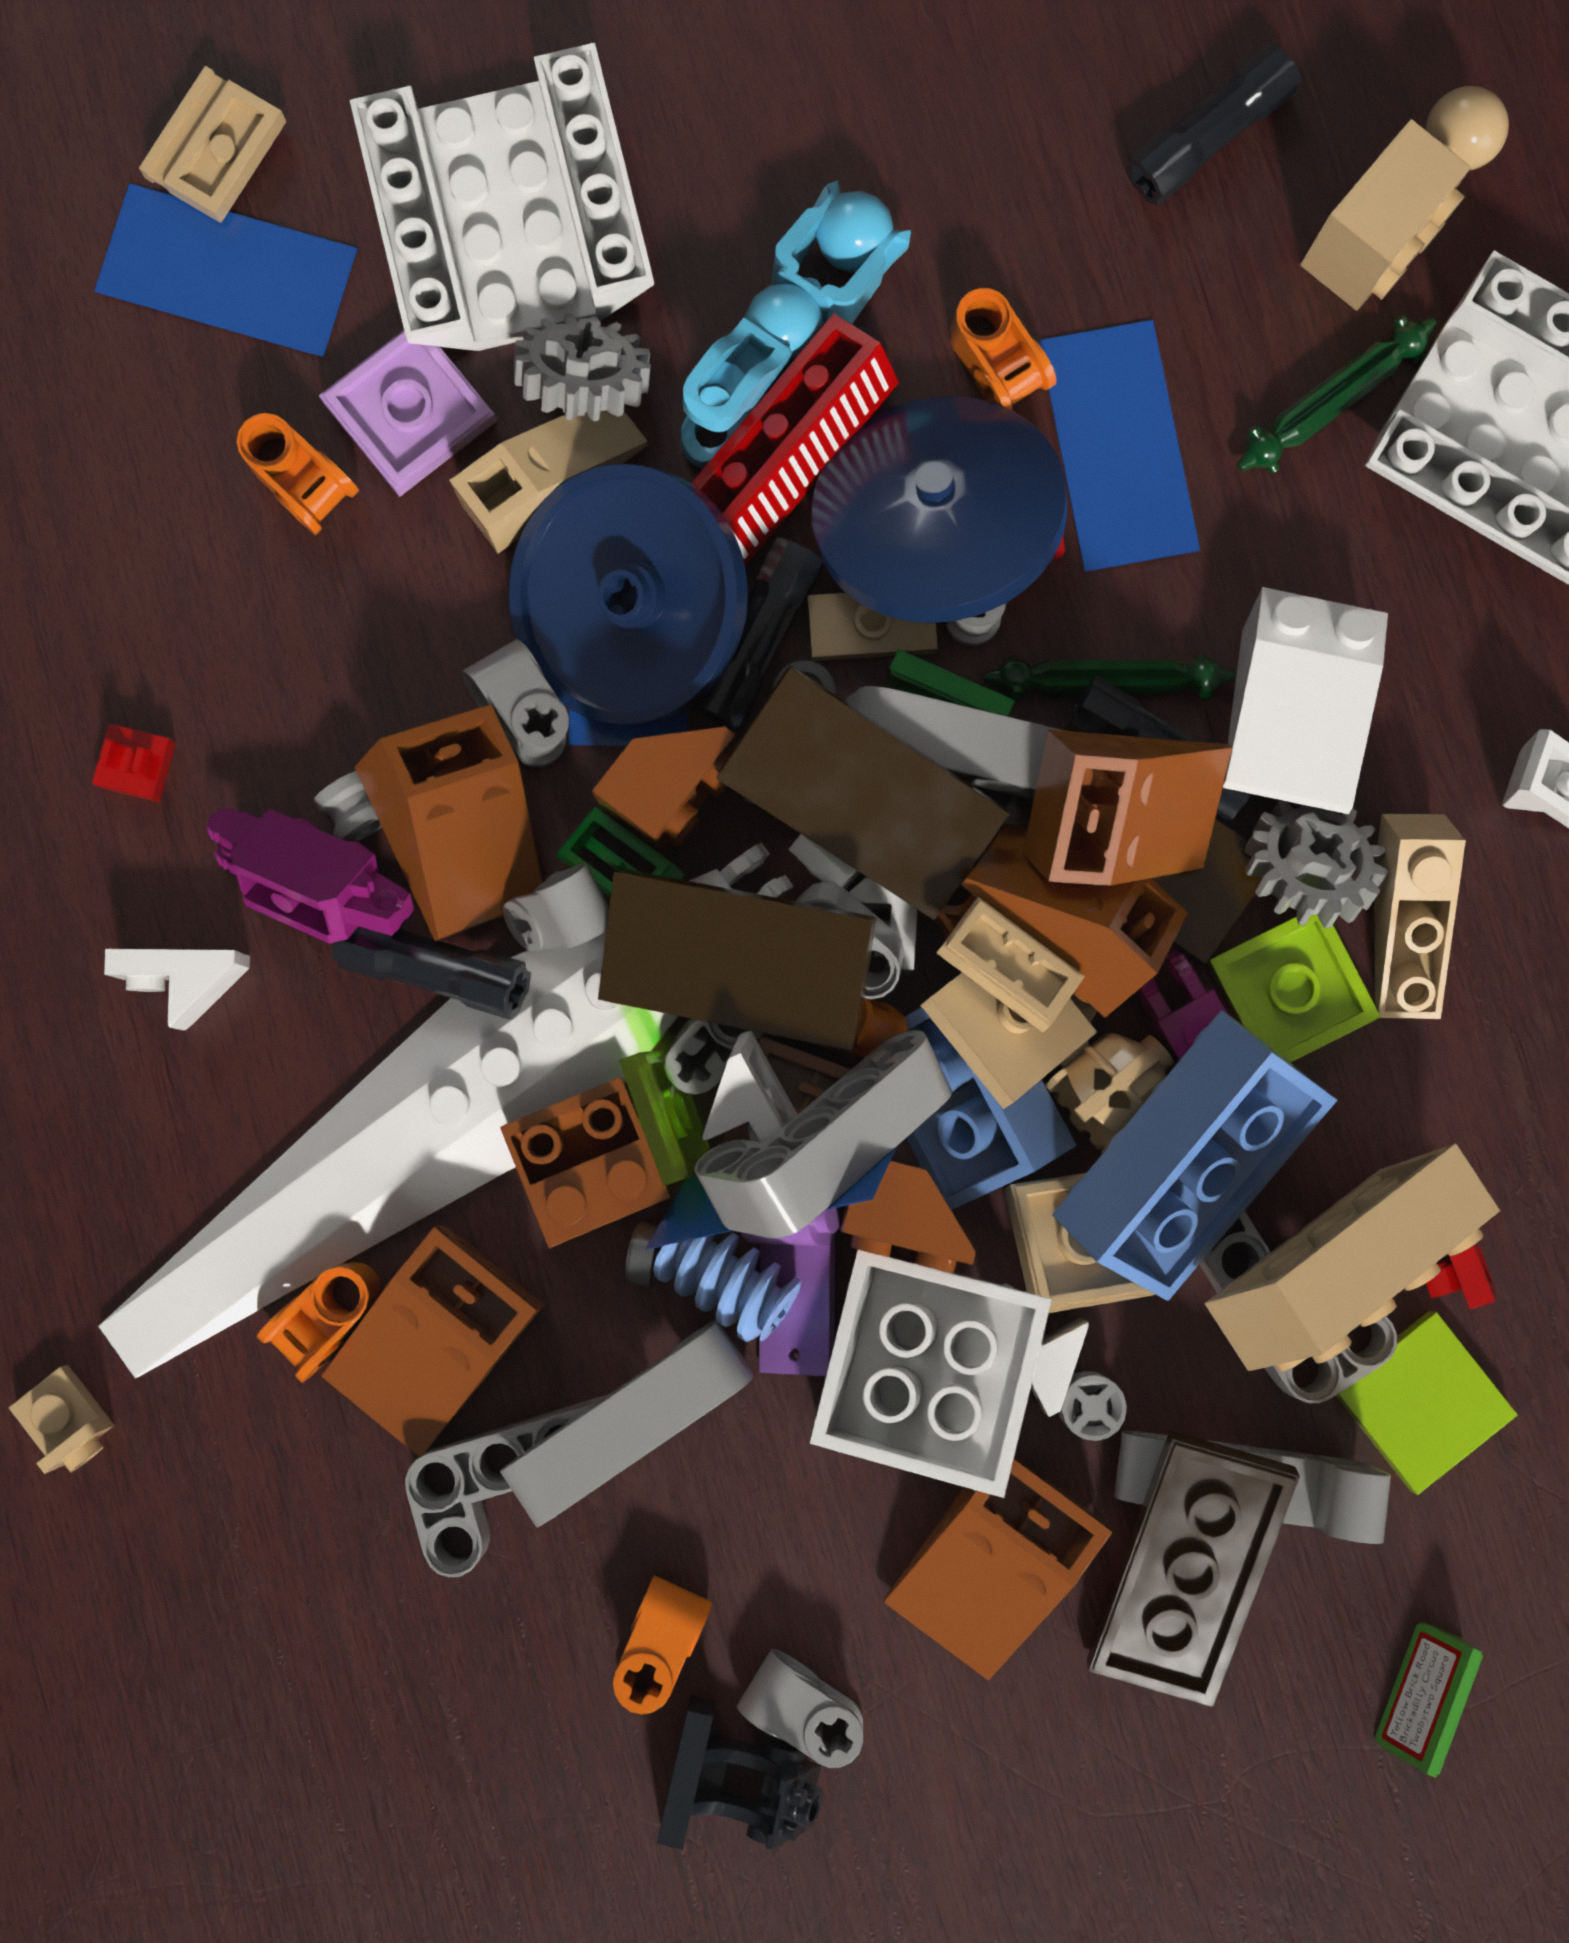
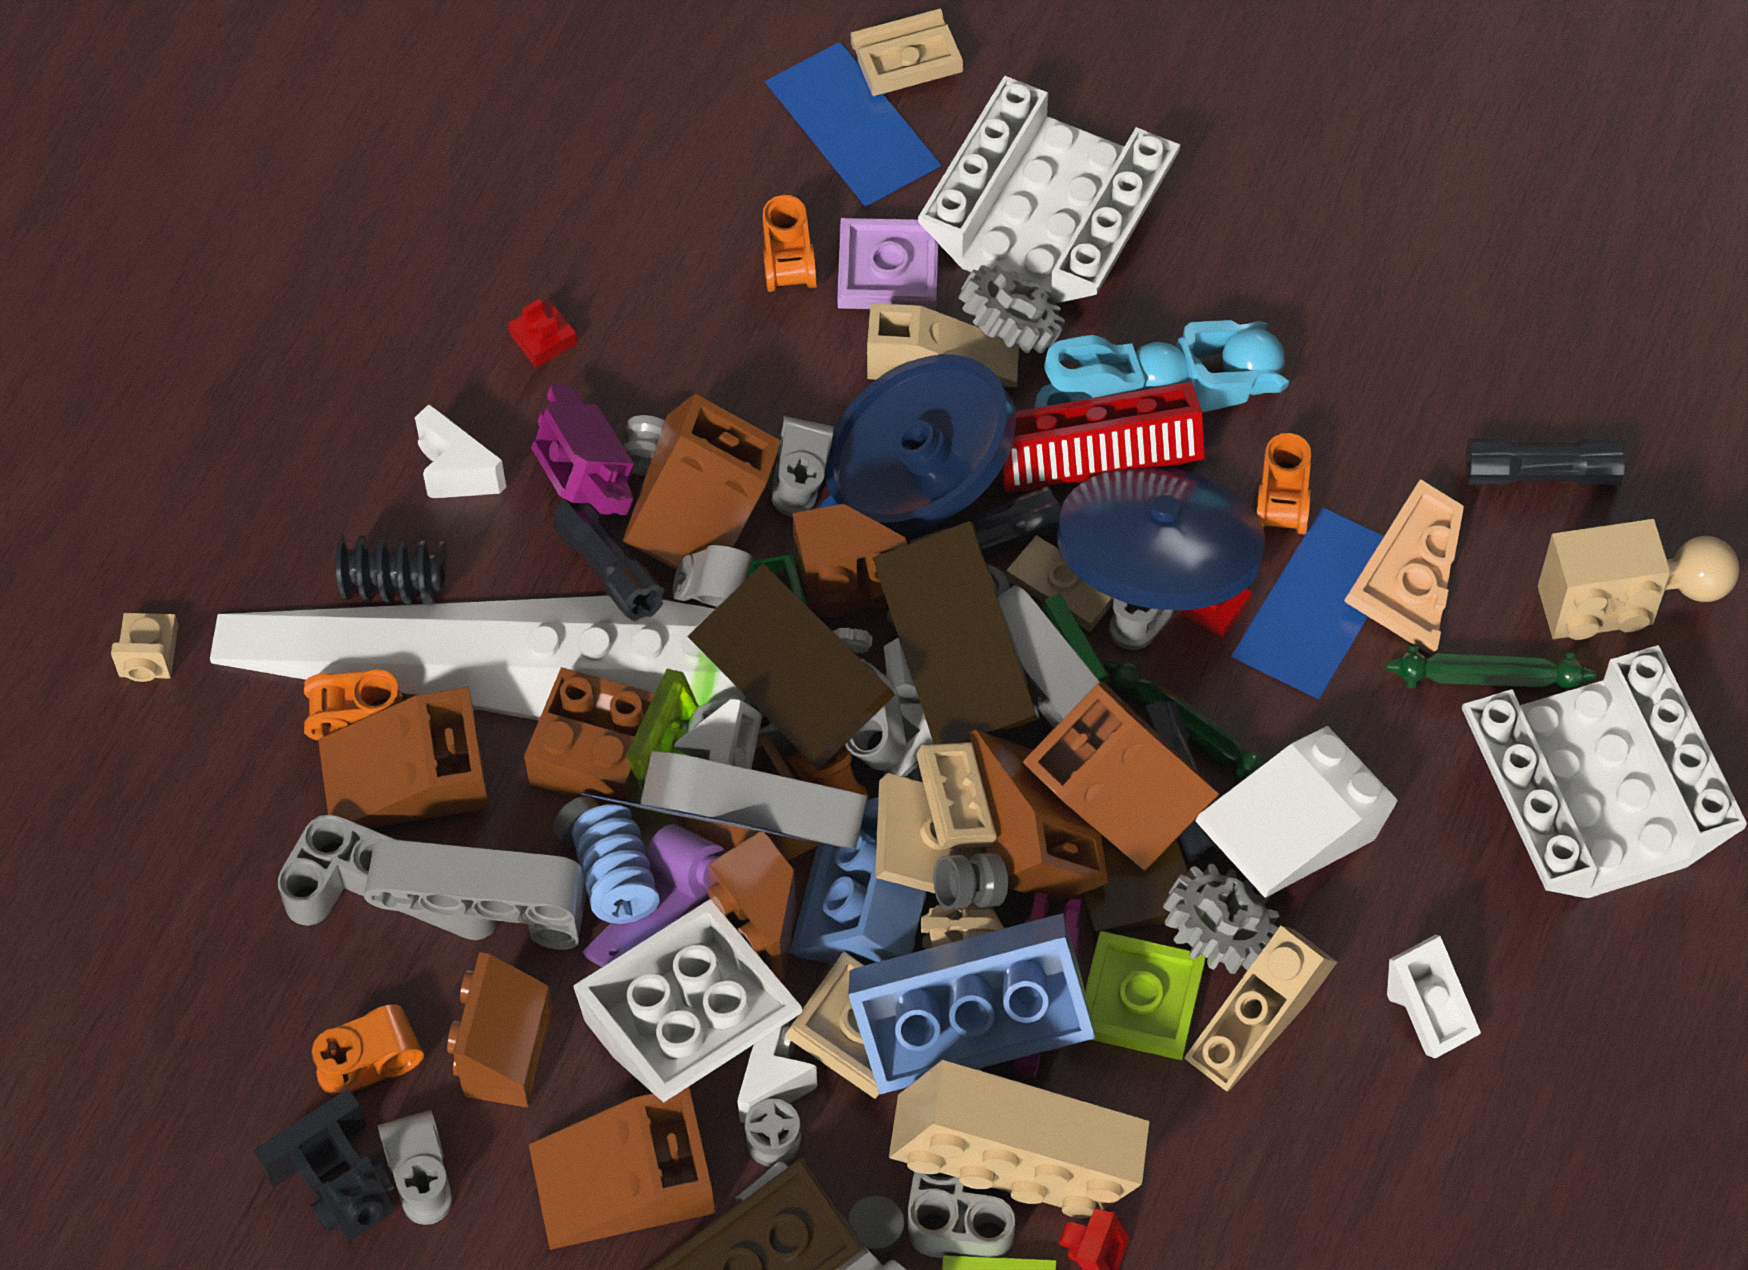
camera: 45 degrees right, 25 degrees down
(229, 1153) = (390, 571): none -> black piece
(775, 1535) = (500, 1032): none -> dark orange slope
(1092, 1044) = (965, 881): none -> dark grey wheel
(1180, 348) = (1411, 568): none -> light nougat wing
(1250, 1410) = (877, 1224): none -> dark grey tile

